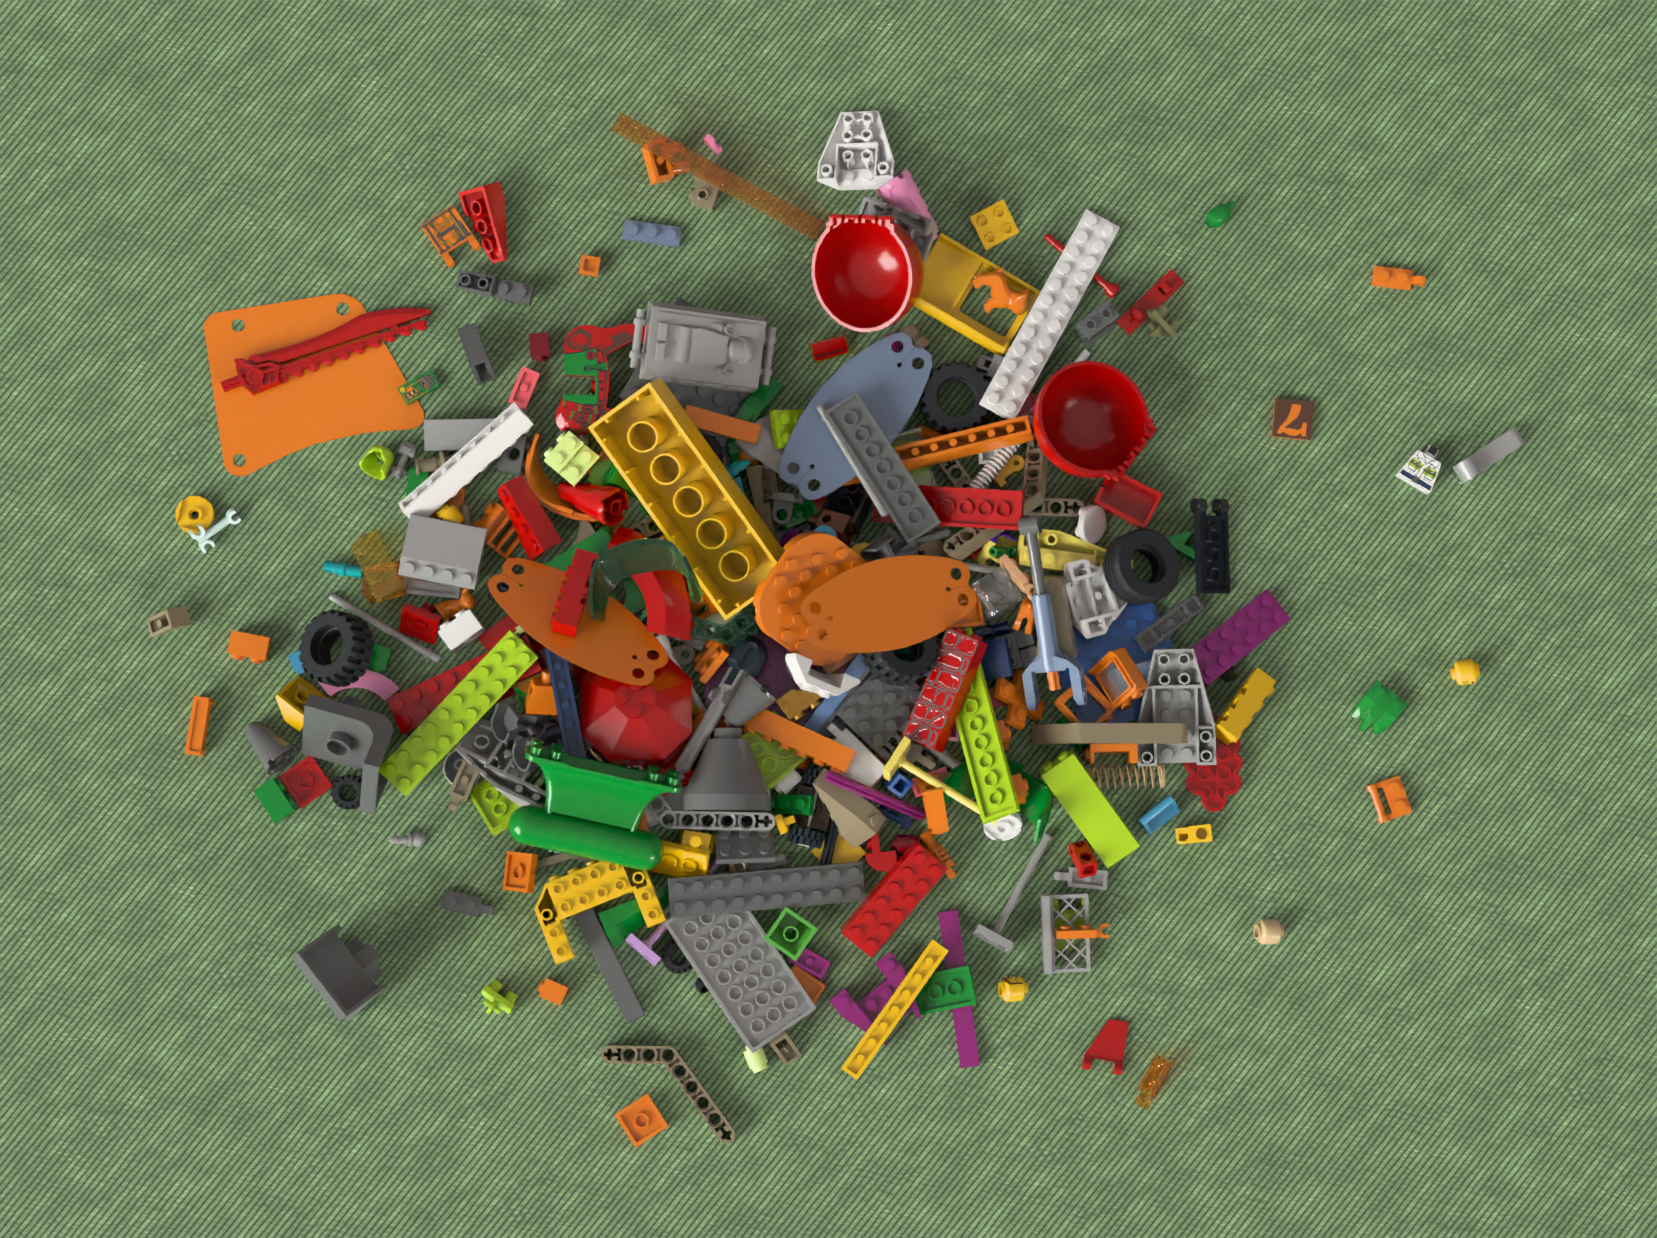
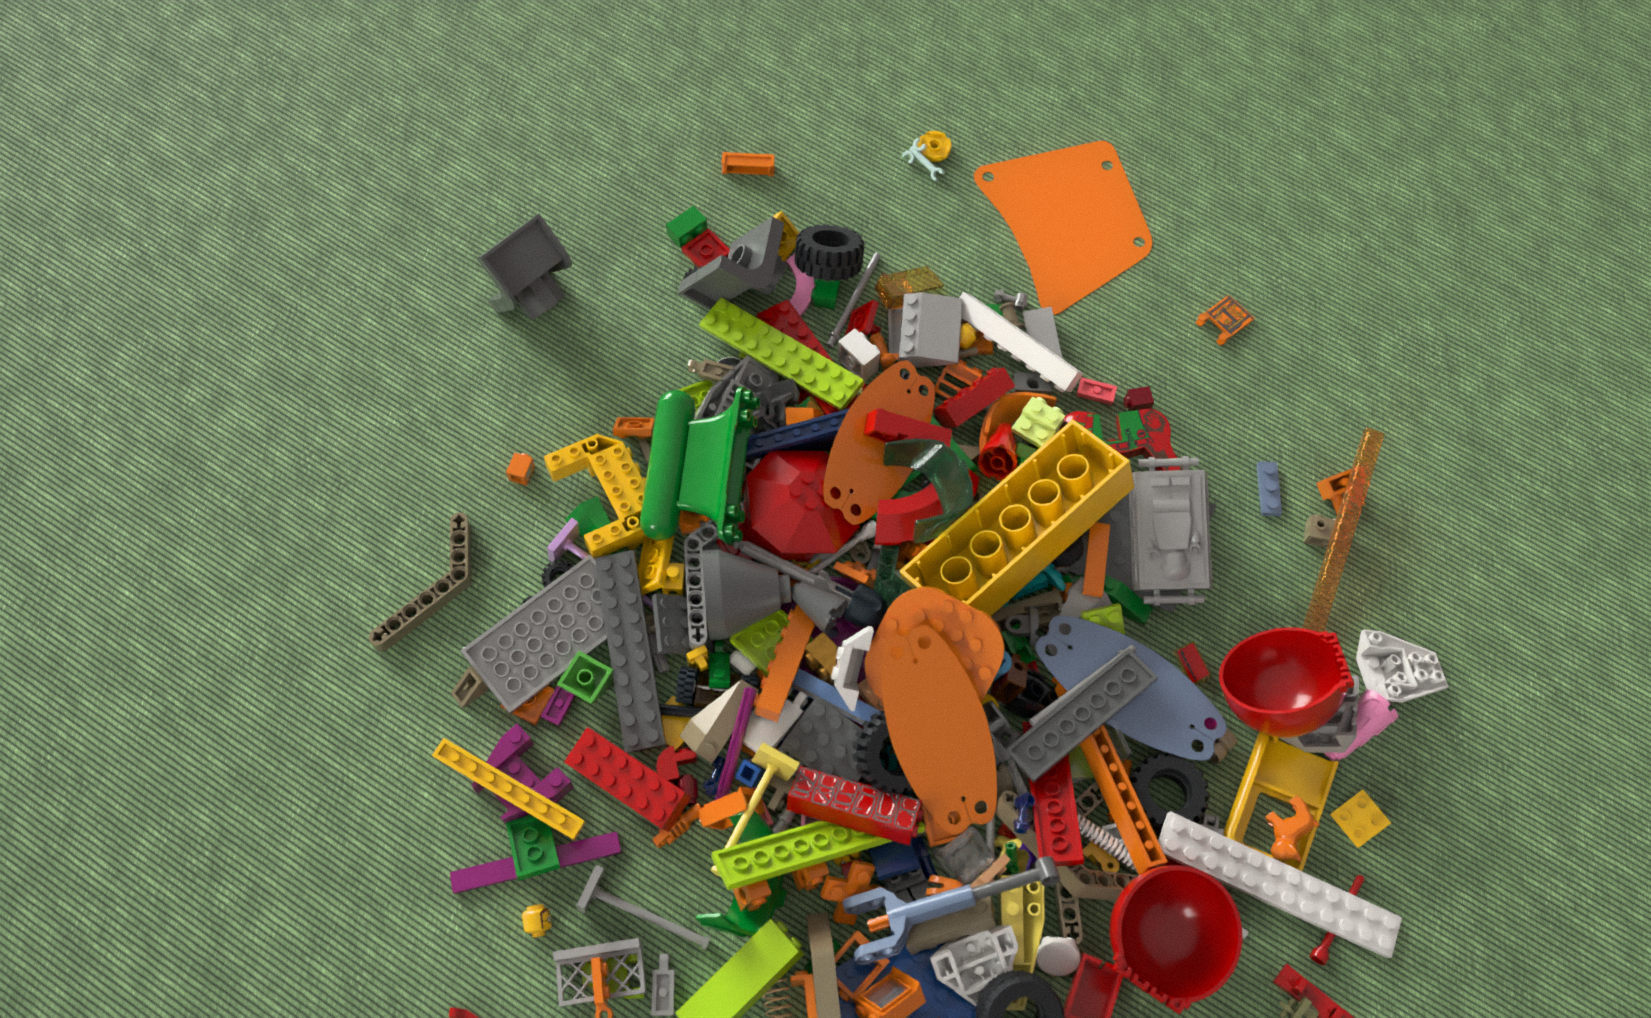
camera: 80 degrees right, 20 degrees down
(168, 621) = (838, 135): dark tan slope -> none
(249, 646) = (823, 195): orange brick -> none
(268, 375) = (1115, 250): red piece -> none
(270, 747) = (733, 217): dark grey cone -> none
(343, 569) = (903, 259): teal pin -> none
(372, 467) = (1005, 277): lime hair -> none
(416, 839) = (660, 342): light grey bar -> none
(419, 387) = (1080, 306): tile -> none
(464, 904) = (601, 387): dark grey plate -> none
(476, 353) = (1120, 346): dark grey slope -> none
(488, 214) = (1260, 342): red wedge -> none
(491, 993) = (518, 415): lime hips -> none
(495, 288) = (1186, 357): dark grey slope -> none
(589, 266) = (1225, 436): orange plate -> none
(609, 965) = (545, 516): dark grey beam -> none
(641, 1120) = (395, 559): orange plate -> none
(710, 142) = (1371, 533): bright pink tile -> none
(756, 1061) = (455, 661): yellowish green brick -> none
(958, 535) = (1022, 803): none -> clear blue bar
(1005, 829) = (713, 893): white tile -> none
(1083, 859) = (683, 984): red leg -> none
(1096, 324) = (1281, 938): dark grey window -> none

